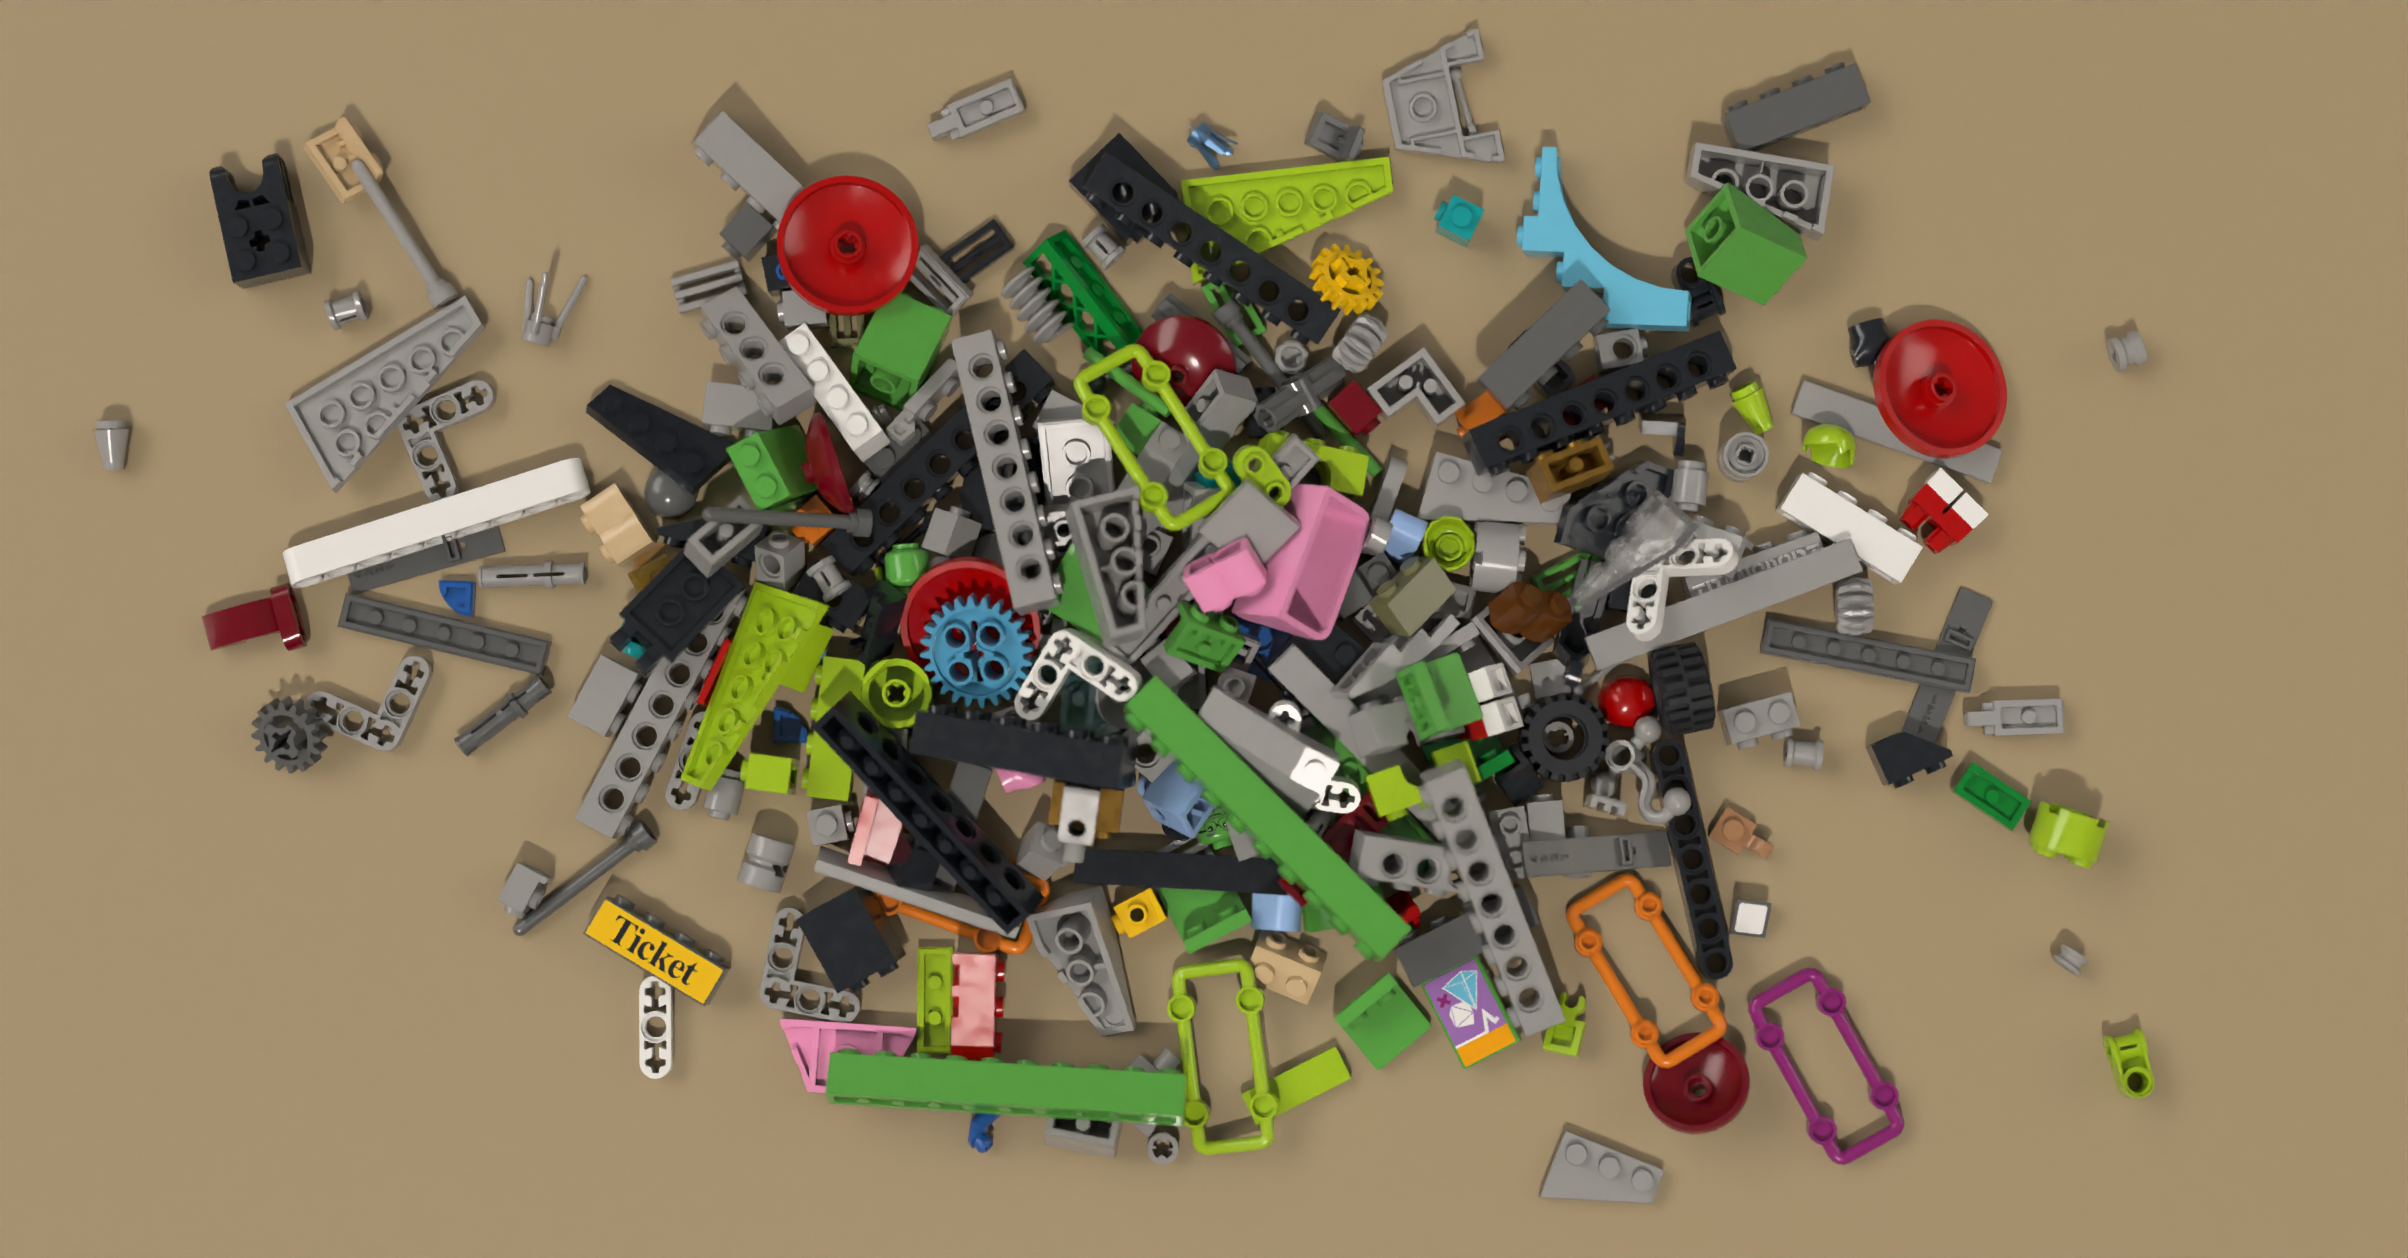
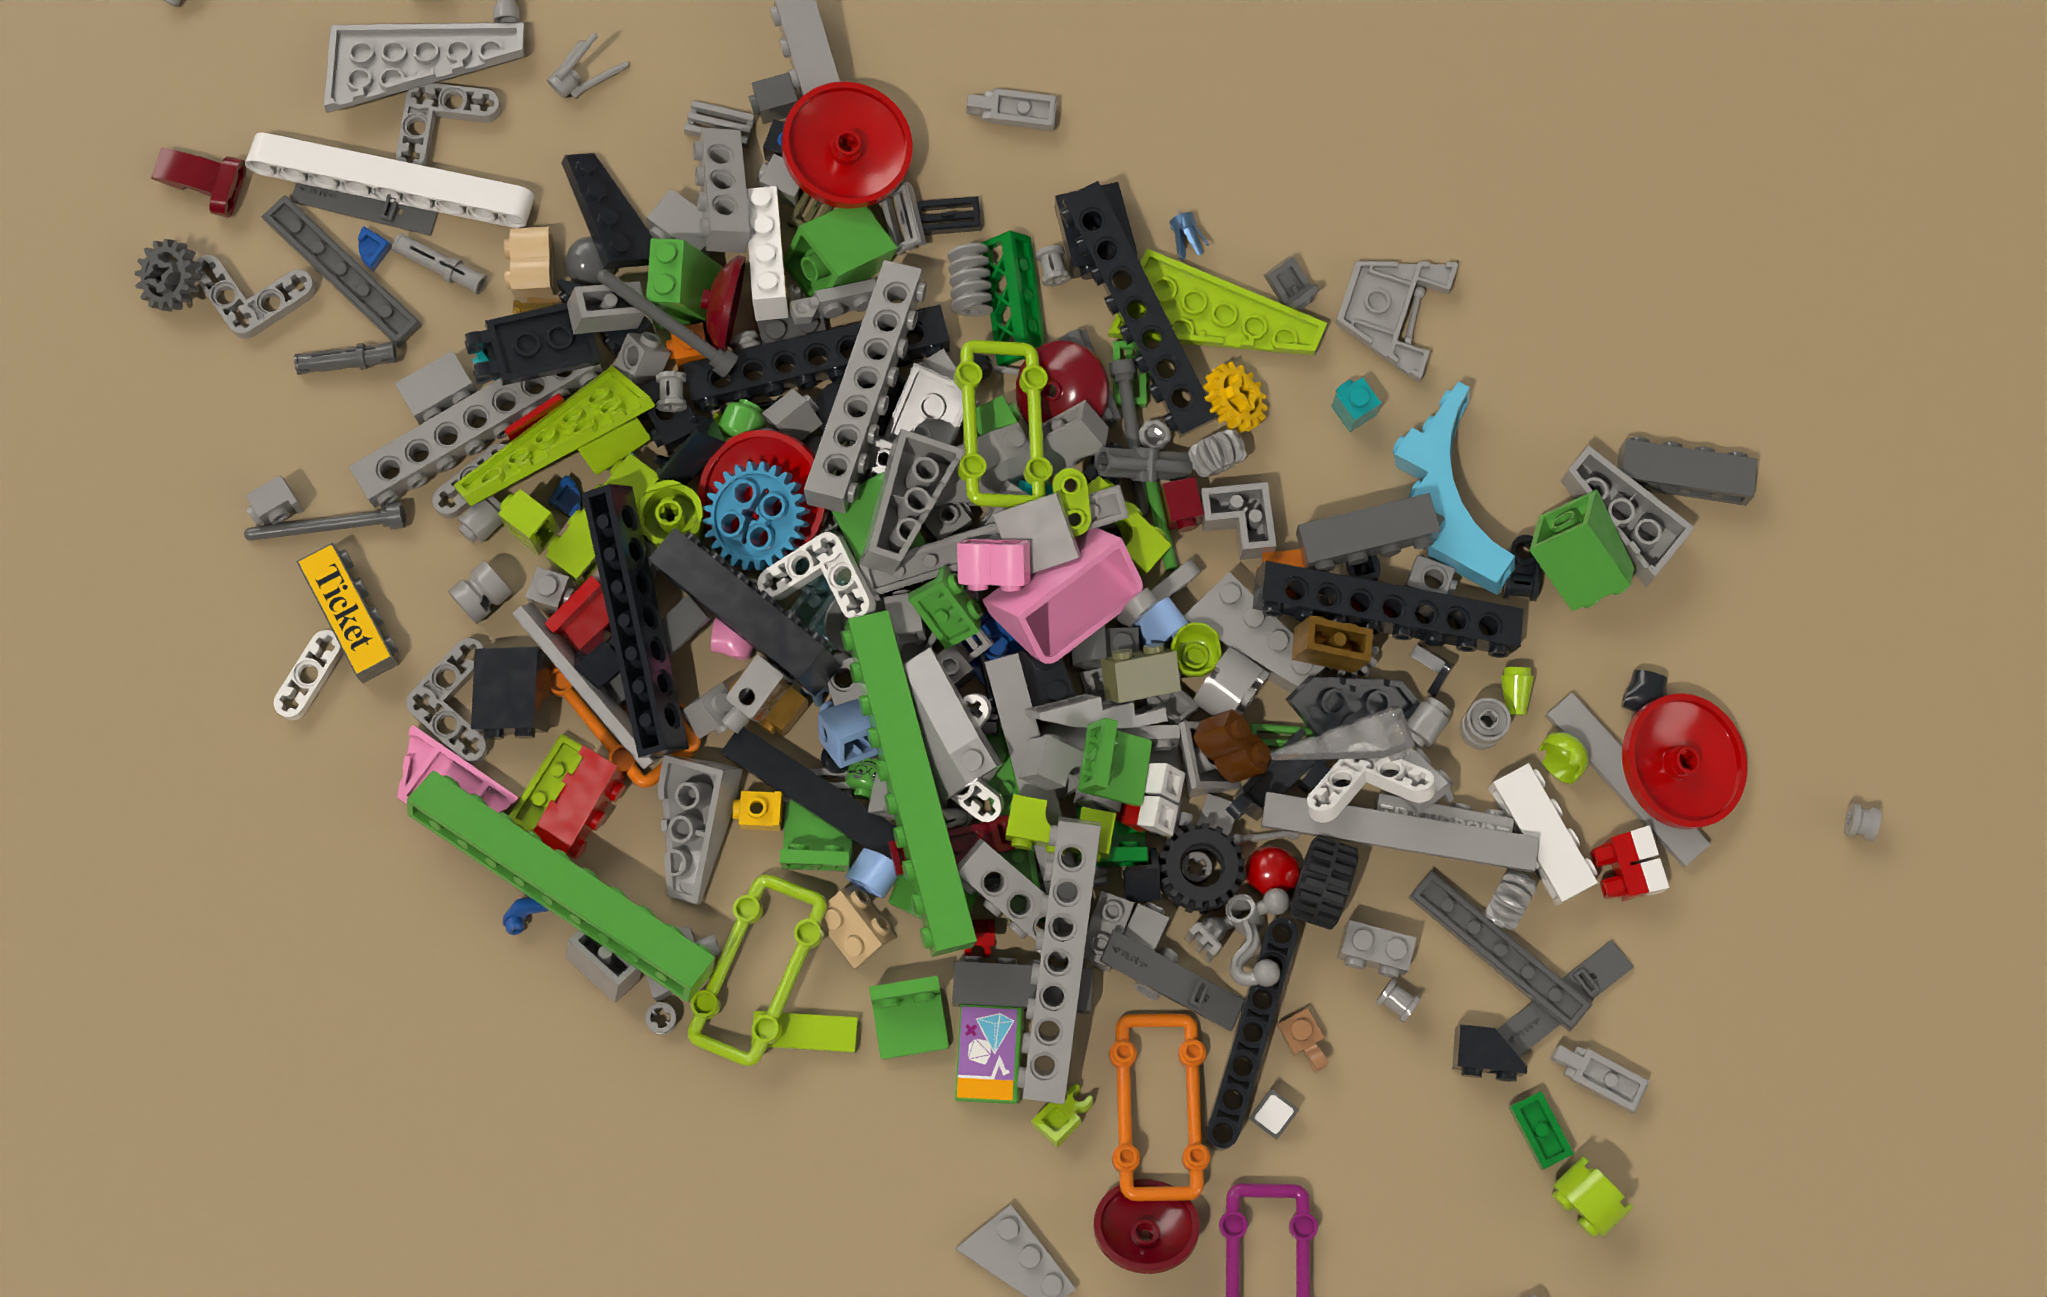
camera: 25 degrees right, 10 degrees down
(1130, 383) = (1011, 383): bright green bar -> none

